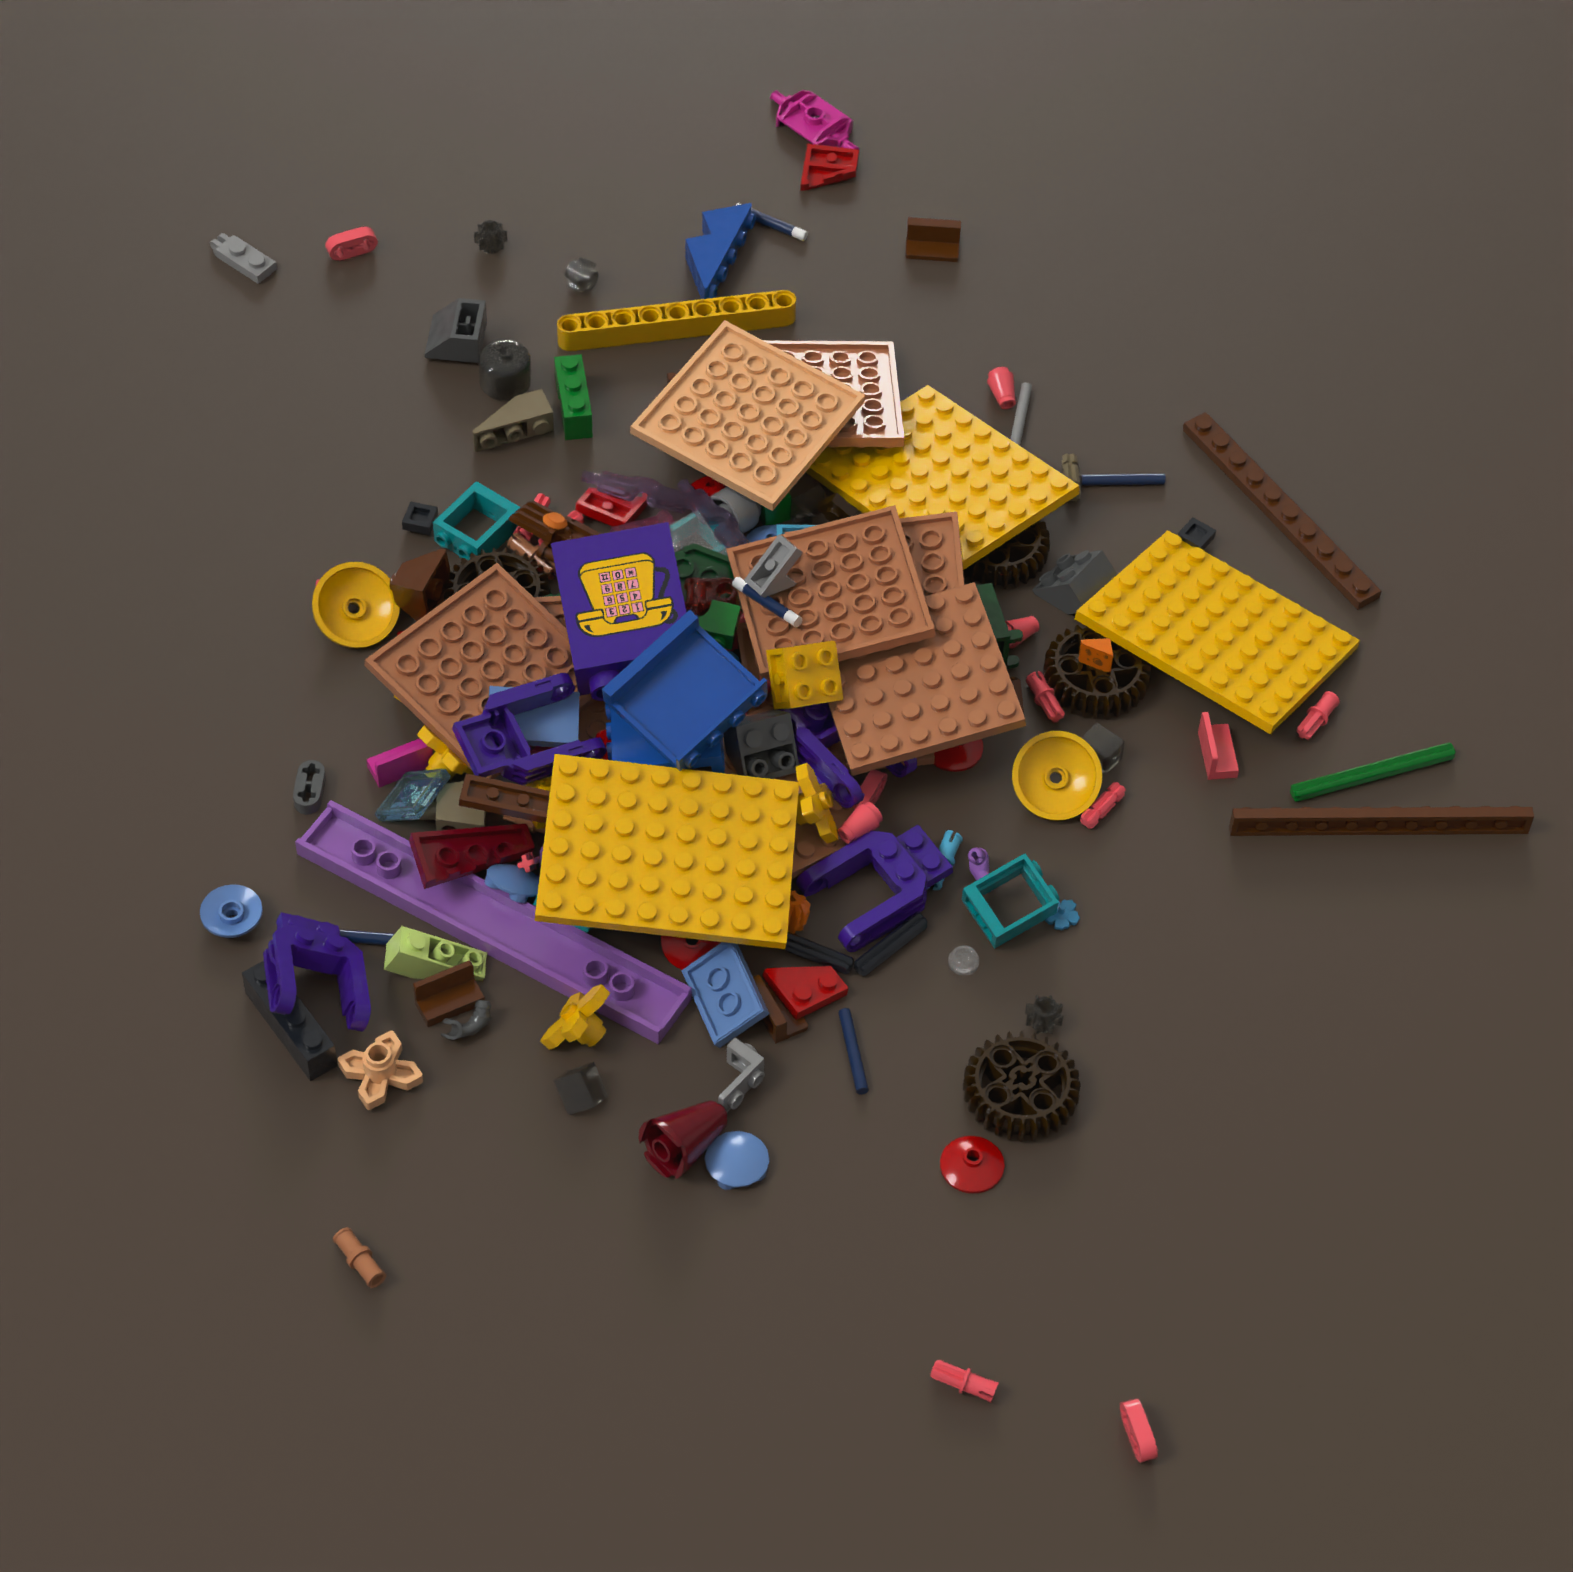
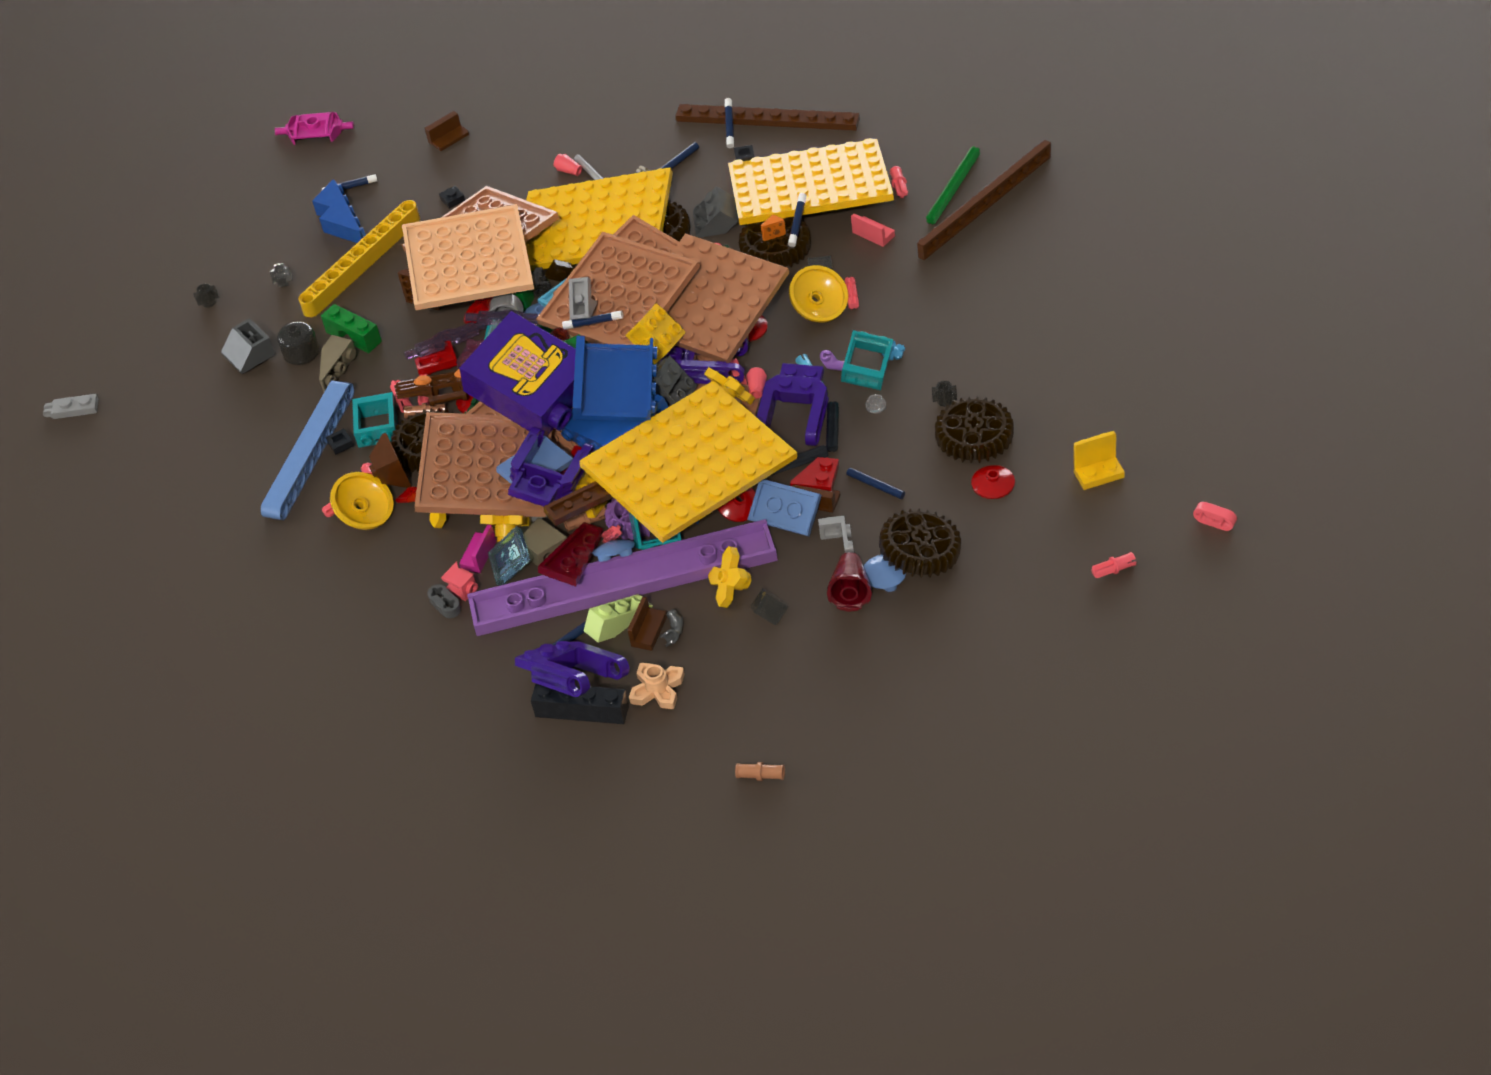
camera: 35 degrees left, 5 degrees down
(230, 901) = (480, 685): medium blue dish -> none
(343, 779) = (460, 582): none -> coral window
(351, 243) = (129, 354): coral beam -> none
(381, 500) = (307, 450): none -> medium blue beam
(801, 1148) = (920, 543): none -> dark brown gear
(828, 165) = (347, 139): red wing -> none
(849, 324) = (451, 197): none -> black plate
(1094, 1247) = (1096, 460): none -> yellow bracket
(1133, 666) = (797, 219): none -> dark blue bar
(1225, 481) = (729, 123): none -> dark blue bar

